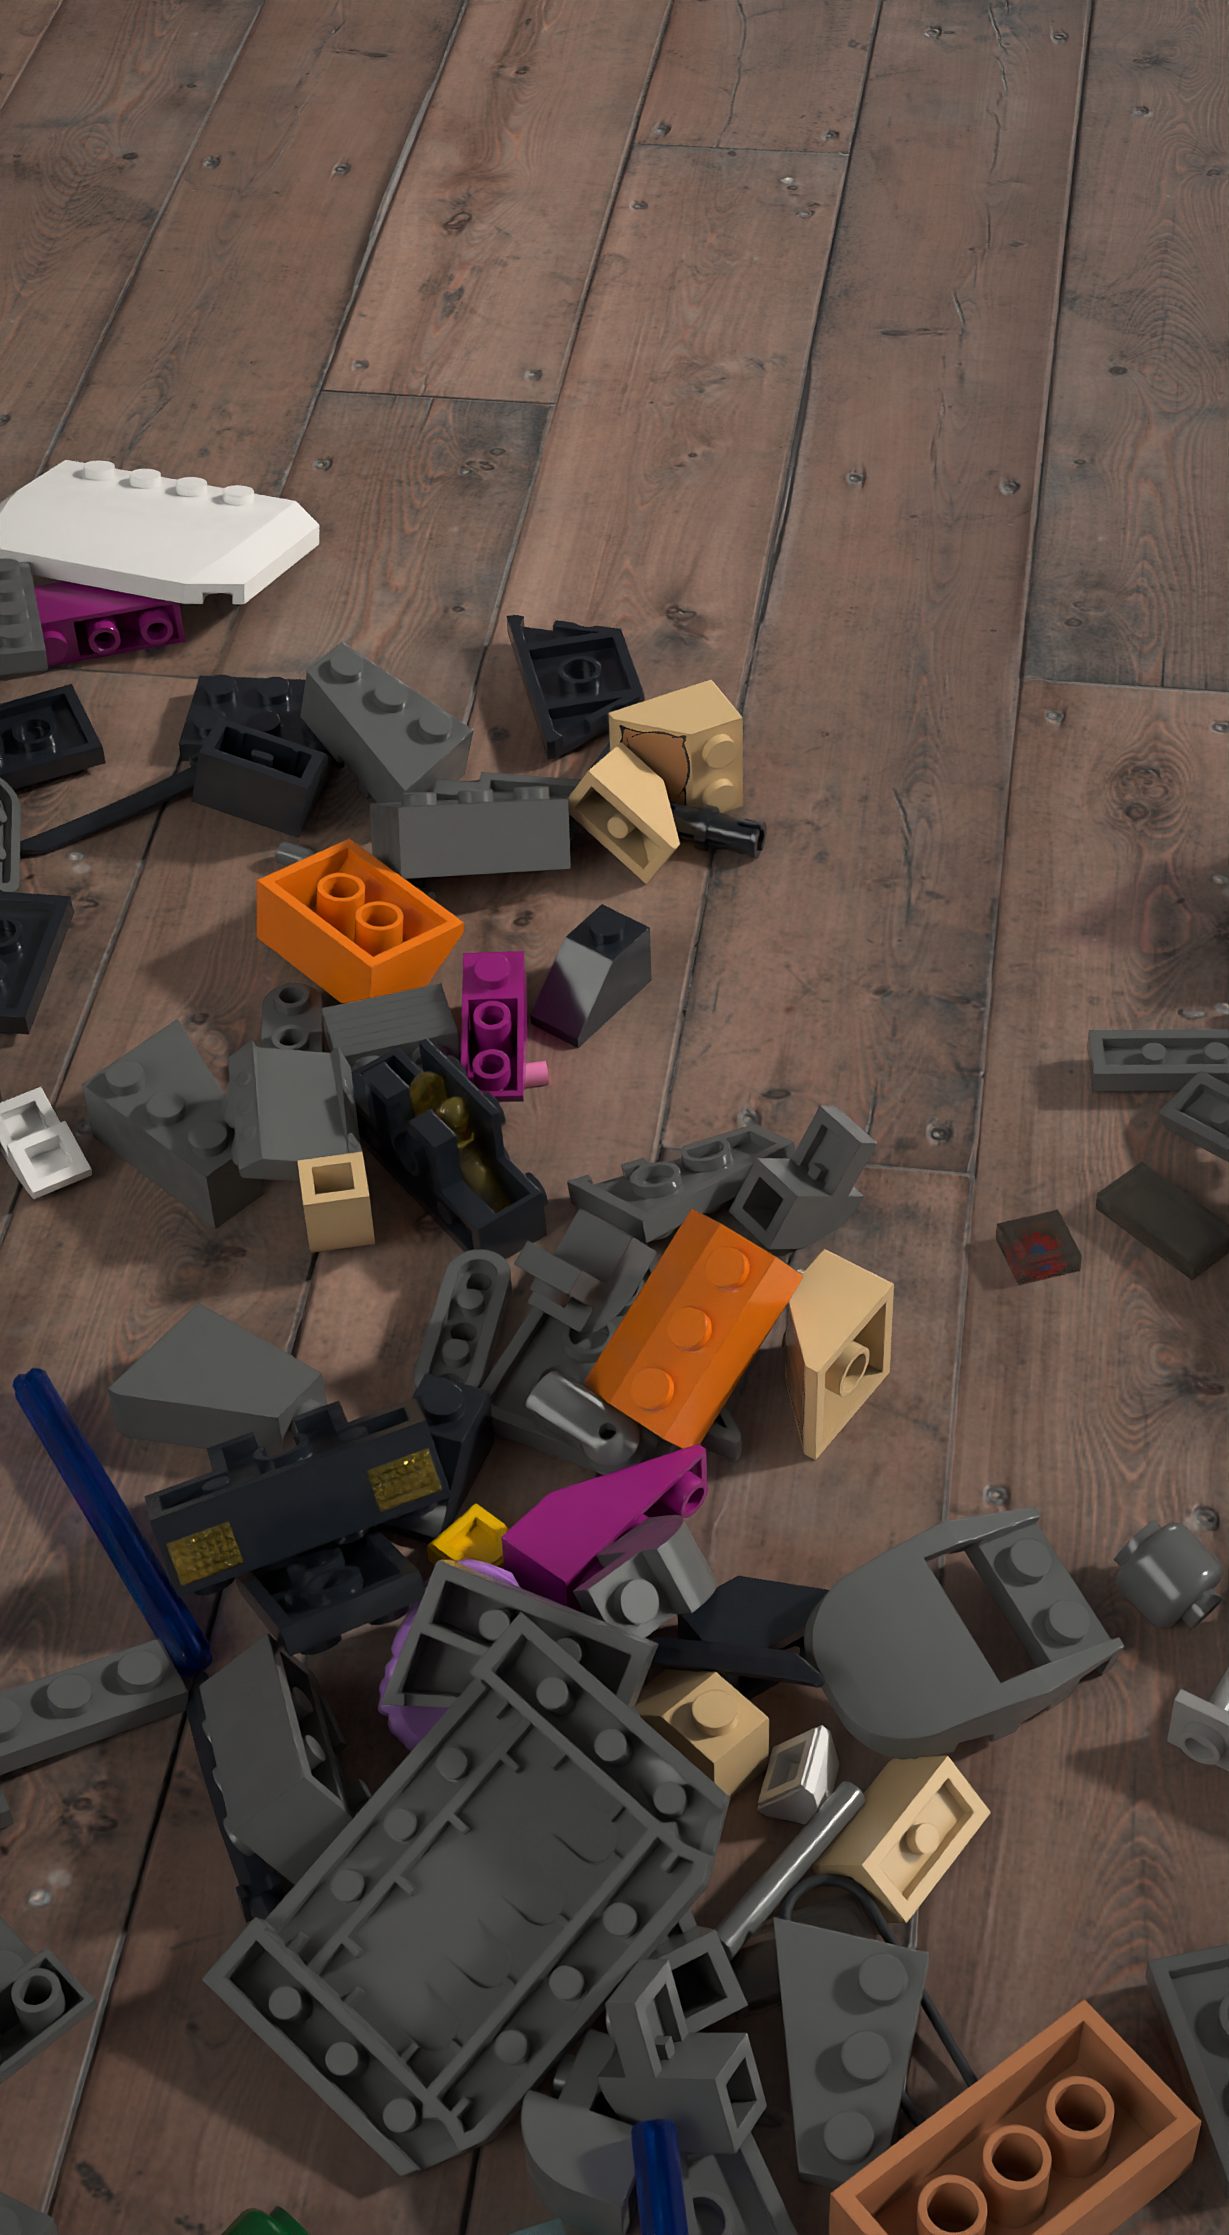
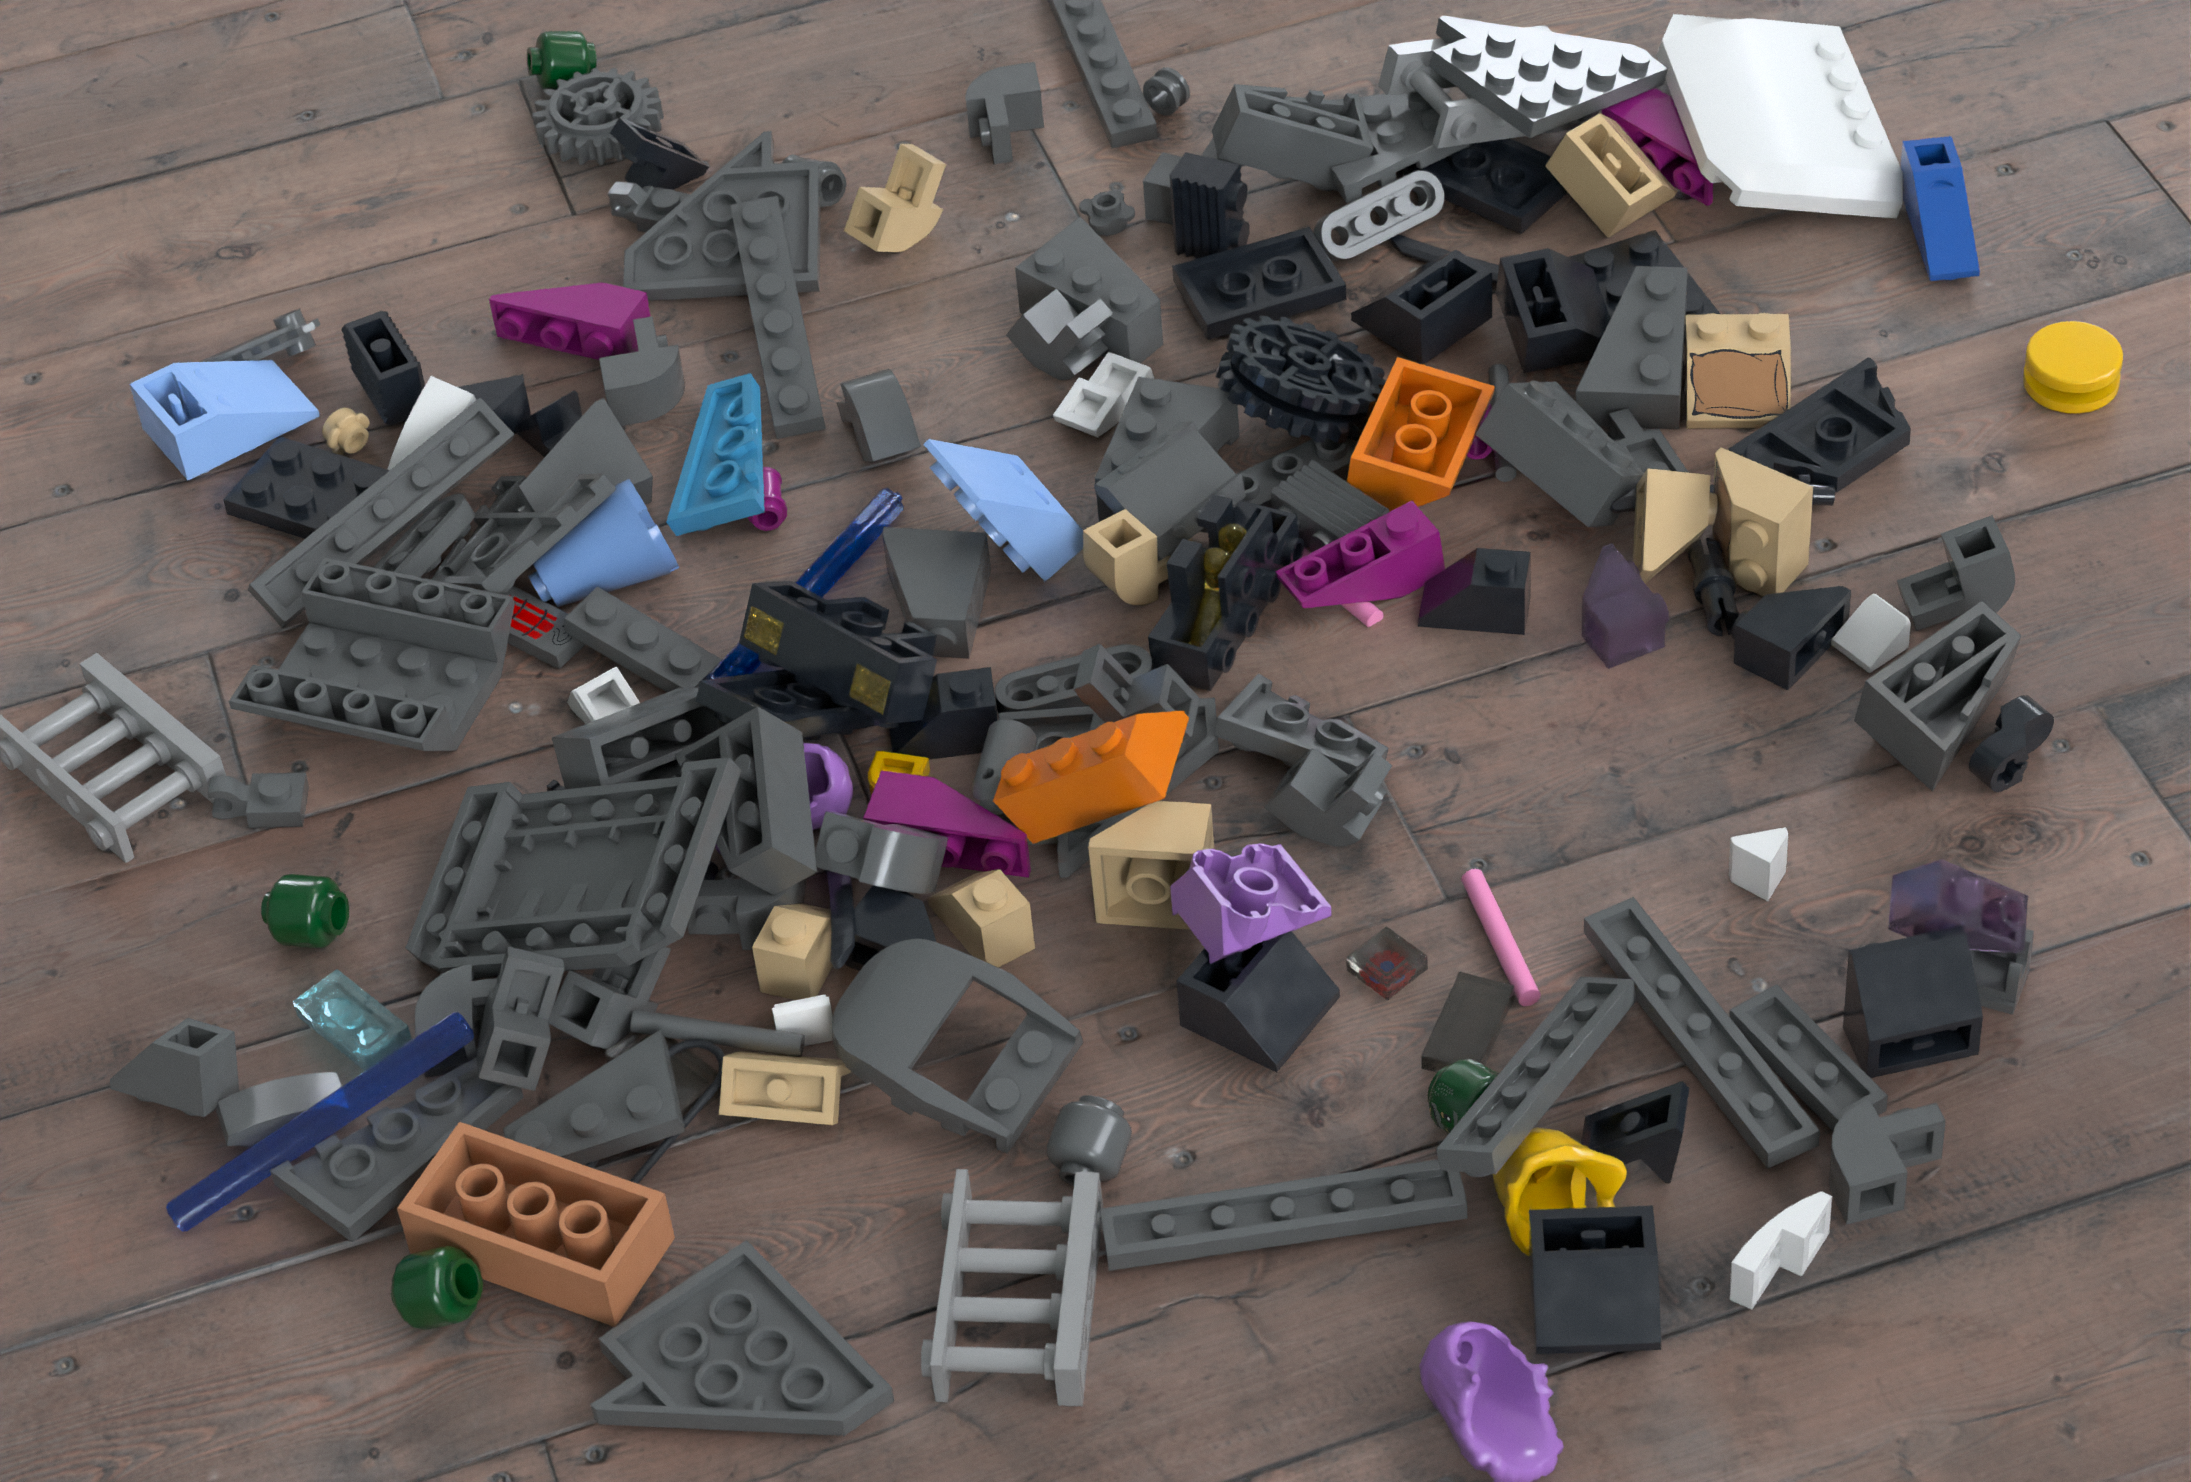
camera: 65 degrees right, 0 degrees up
(117, 661) = (1608, 174): none -> tan slope
(121, 1791) = (602, 696): none -> white slope
(156, 851) = (1430, 307): none -> black slope
(186, 1261) = (1009, 505): none -> light blue slope
(202, 968) = (1300, 379): none -> black piece
(359, 501) = (1939, 208): none -> blue slope
(463, 682) = (1736, 369): none -> slope
(621, 518) = (2072, 367): none -> yellow head
(690, 893) = (1621, 612): none -> clear purple slope
(768, 1533) = (987, 916): none -> tan slope
(817, 804) = (1789, 632): none -> black slope
(846, 667) = (1975, 572): none -> dark grey brick
(848, 756) = (1873, 634): none -> white slope
(969, 1284) = (1245, 898): none -> medium lavender slope
(978, 742) = (1938, 692): none -> dark grey wedge
(1036, 1354) = (1257, 999): none -> black slope
(1053, 731) = (2003, 755): none -> black piece
(1054, 1150) = (1500, 937): none -> bright pink bar
(1097, 934) = (1759, 861): none -> white slope

